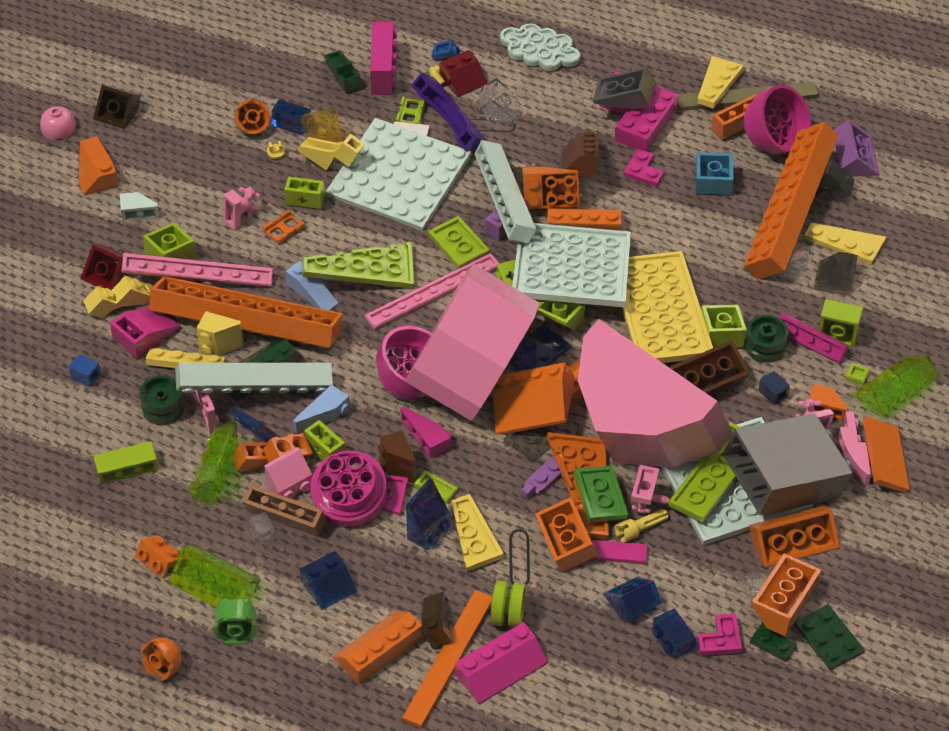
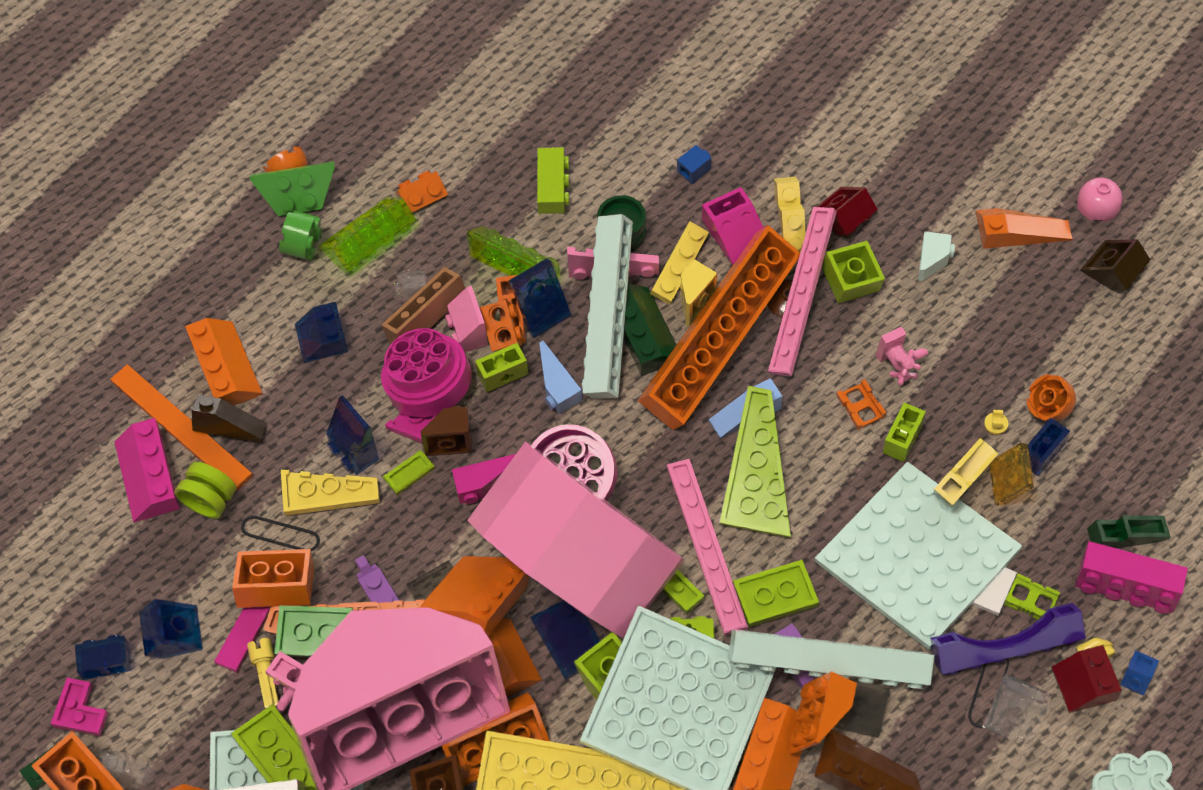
camera: 110 degrees right, 10 degrees up
(185, 638) = (295, 188): none -> bright green wing

